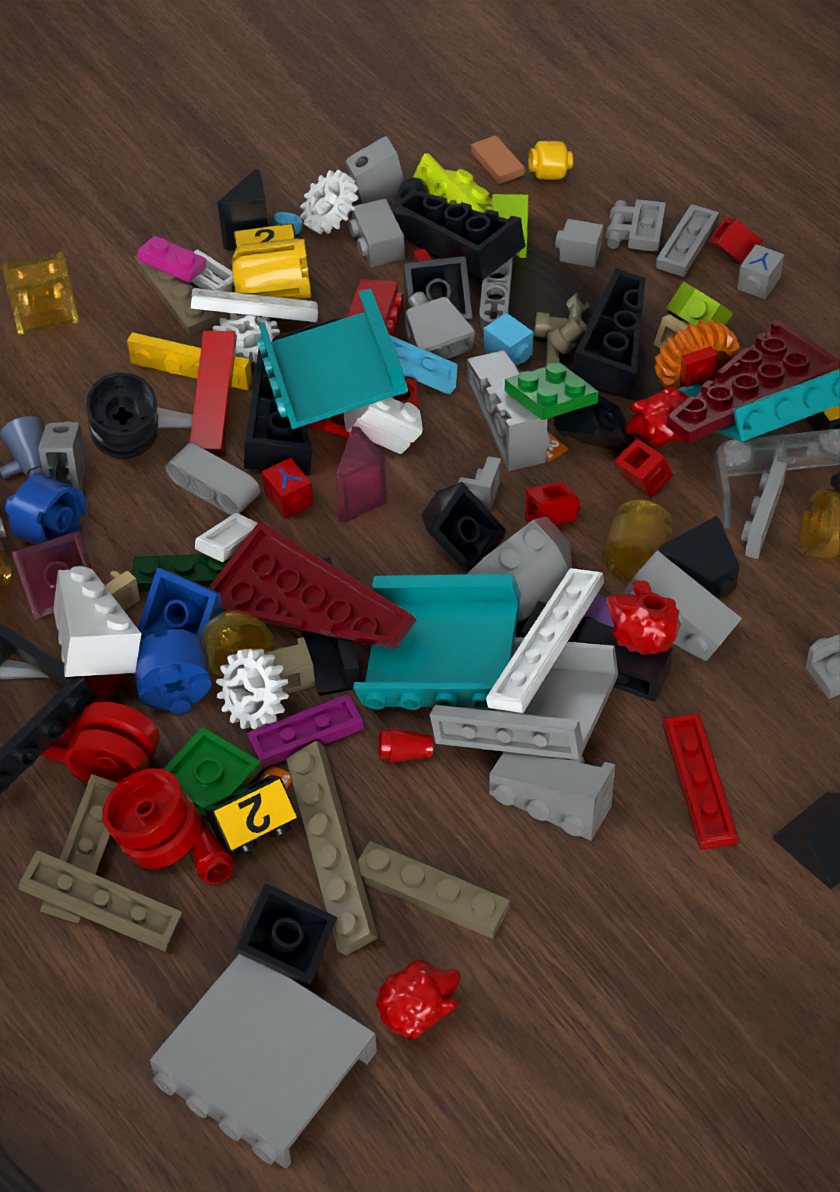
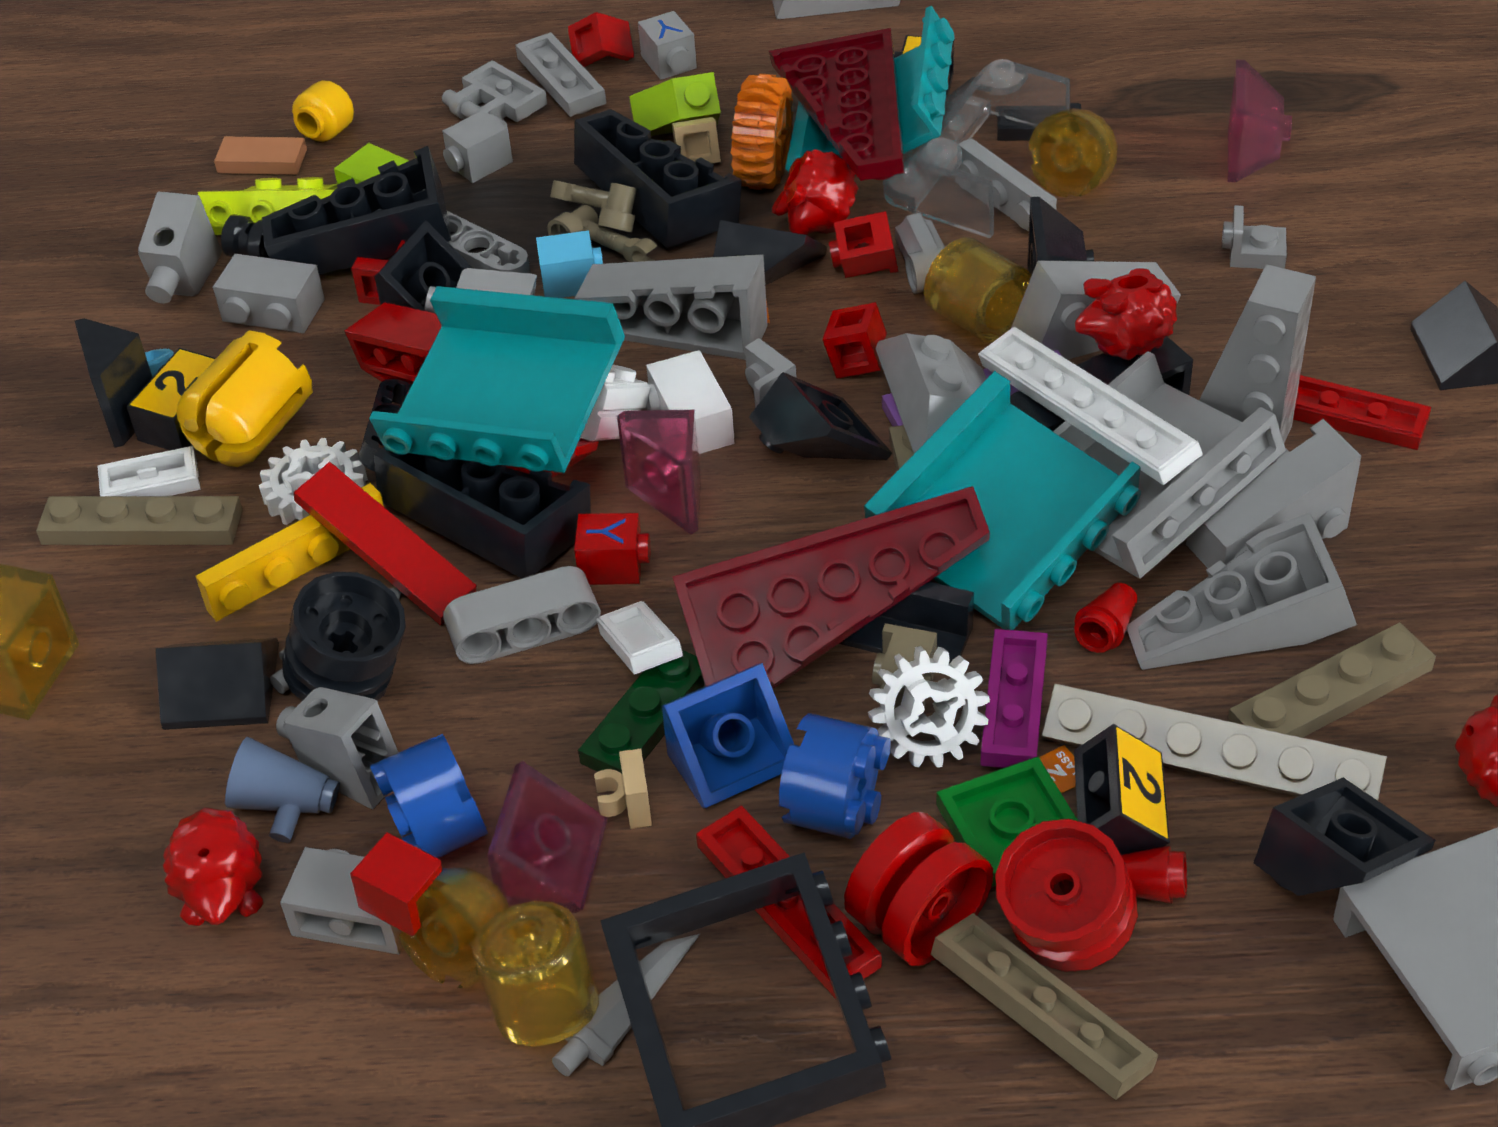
camera: 55 degrees left, 5 degrees down
(74, 379) = (216, 683): none -> black slope
(92, 626) = (697, 815): white wedge -> none
(100, 900) = (1156, 1013): dark tan plate -> none
(171, 259) = (99, 487): dark pink plate -> none
(233, 632) = (827, 684): clear yellow cylinder -> none
(254, 305) = (277, 442): white tile -> none
(329, 202) = (176, 305): white gear -> none
(432, 460) = (687, 385): none -> white brick
(470, 816) = (1262, 600): none -> light grey wedge
(551, 391) = (723, 237): green plate -> none
(644, 712) = (1265, 350): none -> light grey wedge
(671, 493) = (919, 247): none -> light grey piece
(698, 366) = (789, 126): red plate -> none

